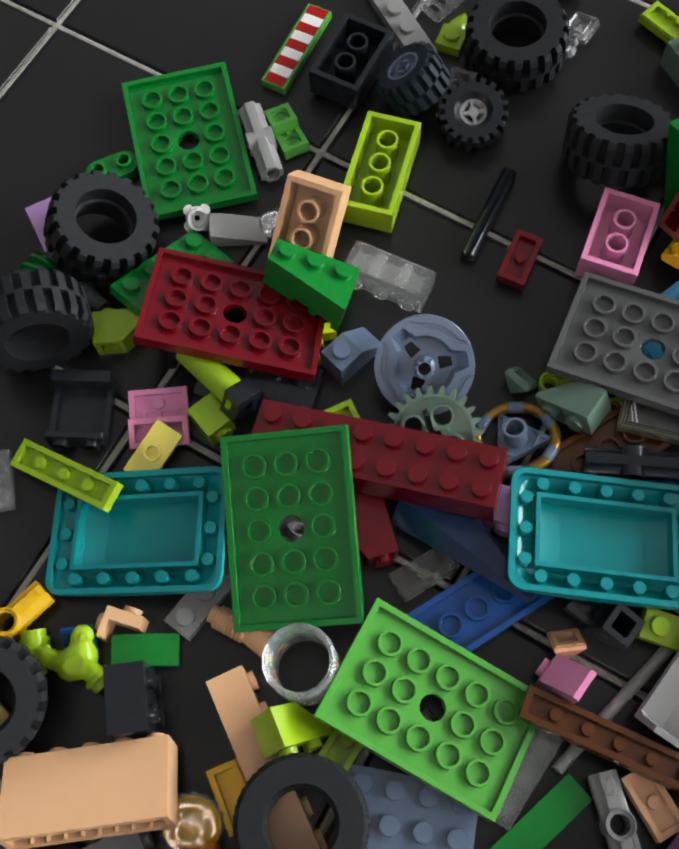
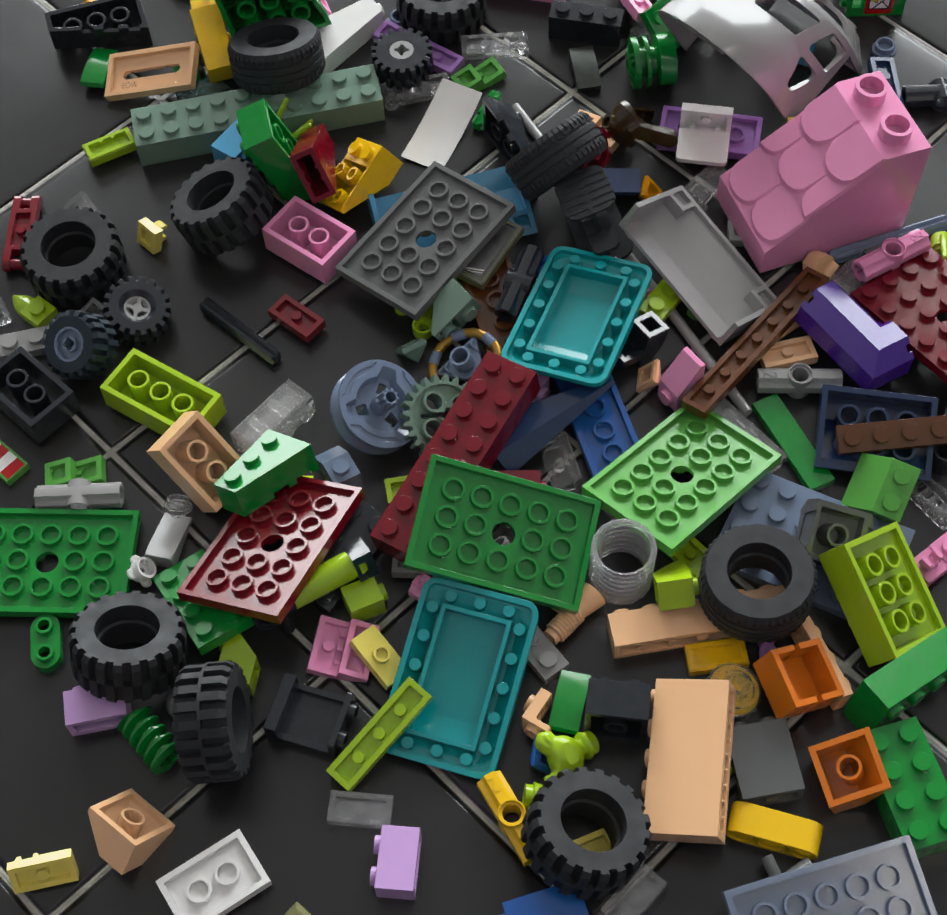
camera: 75 degrees left, 10 degrees down
(571, 96) = (151, 234): none -> light yellow tile

